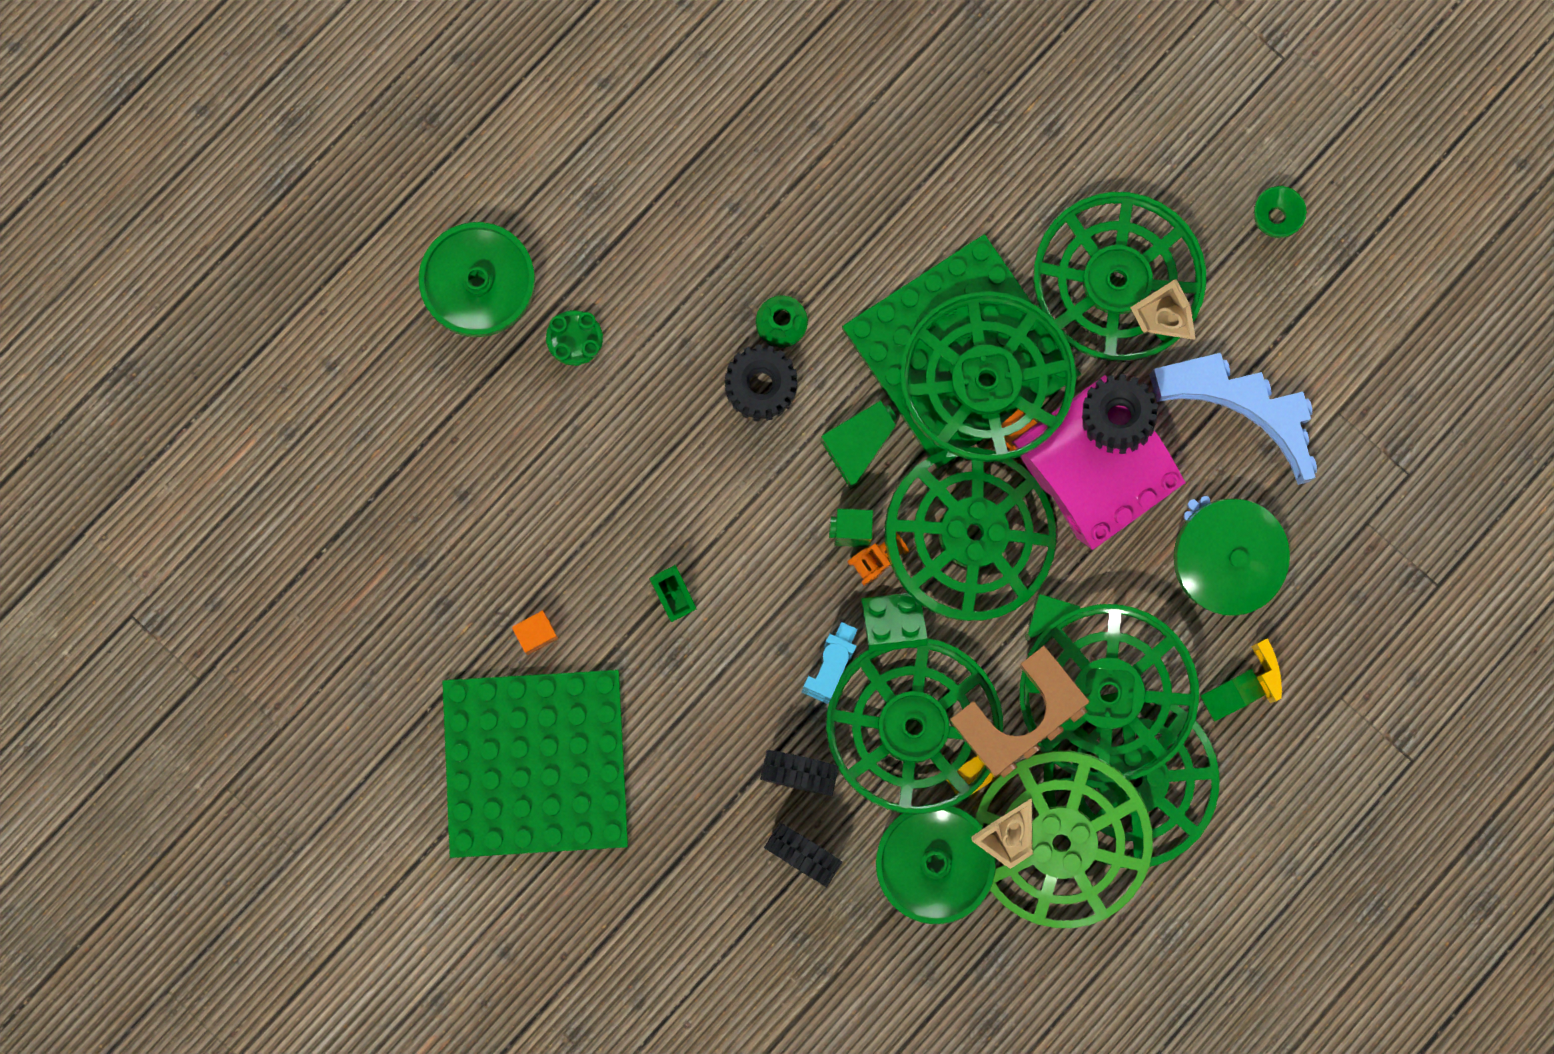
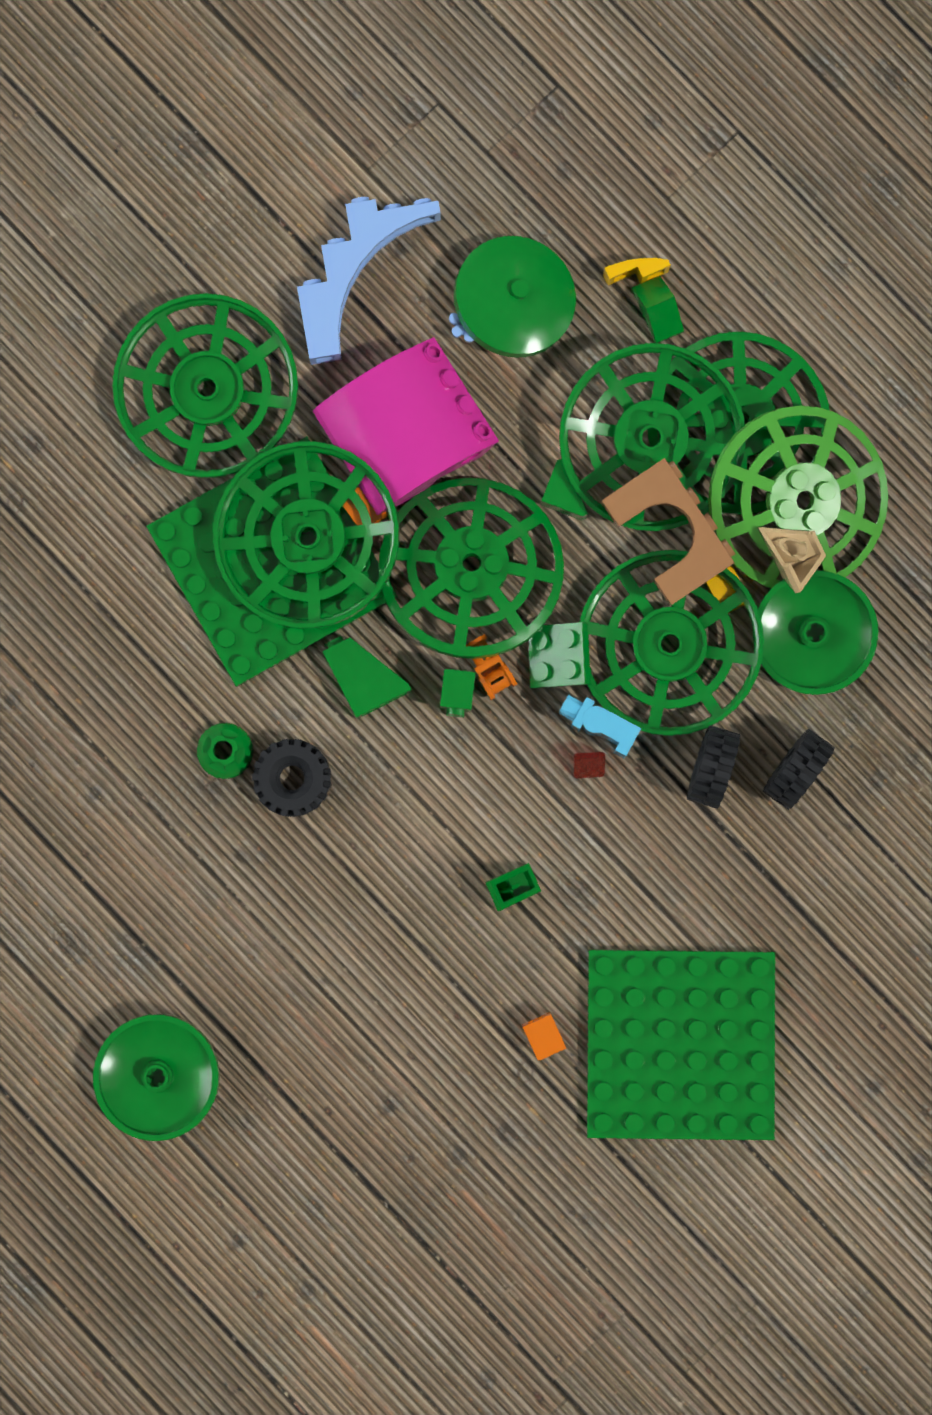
camera: 80 degrees left, 5 degrees up
(574, 337) = (226, 975): green dish -> none
(793, 658) = (589, 765): none -> clear red slope
(1119, 393) = (338, 398): black tyre -> none
(1166, 312) = (251, 340): tan slope -> none
(1288, 202) = (142, 195): green piece -> none

